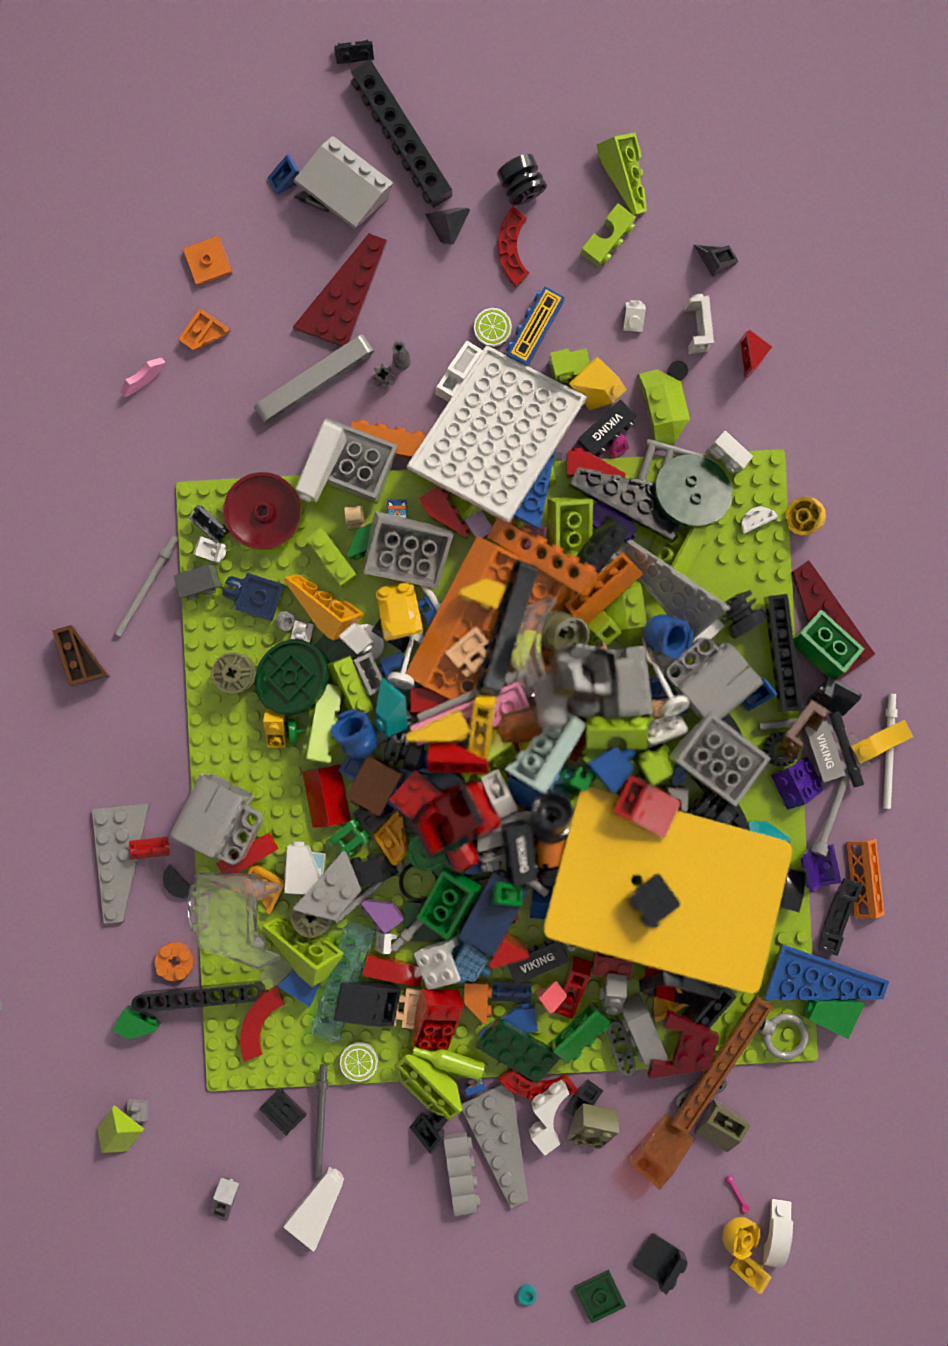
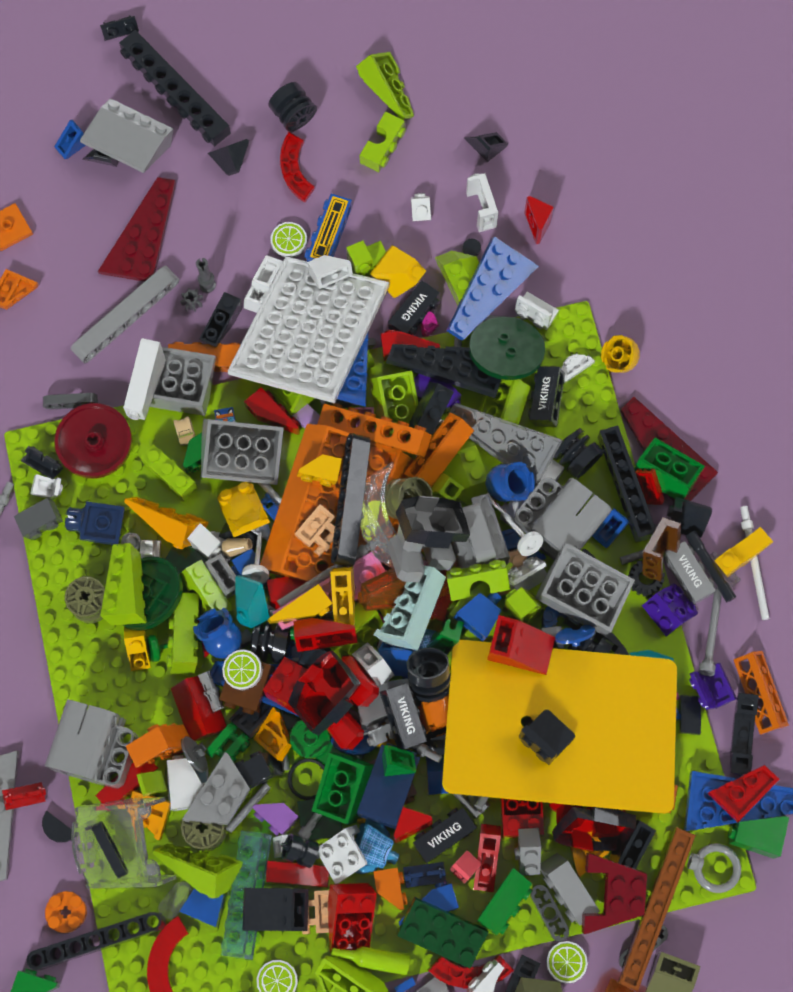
camera: 10 degrees left, 15 degrees down
(222, 917) = (110, 849): none -> black beam
(245, 462) = (66, 401): none -> dark grey beam
(270, 864) = (152, 783): none -> lime slope
(271, 669) = (123, 589): none -> lime wedge
(283, 830) = (159, 742): none -> orange wedge
(314, 843) = (194, 753): none -> dark grey piece
(340, 784) = (211, 691): none -> light grey pin
(372, 774) = (242, 669): none -> tile
(388, 647) = (236, 546): none -> tan cone
(398, 954) = (296, 849): none -> black wheel
(409, 405) = (221, 319): none -> black slope
(527, 372) = (329, 270): none -> white slope
(627, 1092) = (566, 962): none -> lime tile
(694, 413) = (494, 280): none -> wing
(697, 805) = (574, 637): none -> blue piece
(722, 547) = (546, 396): none -> black brick
(808, 659) = (652, 486): none -> red tile
(828, 975) = (743, 793): none -> red wing

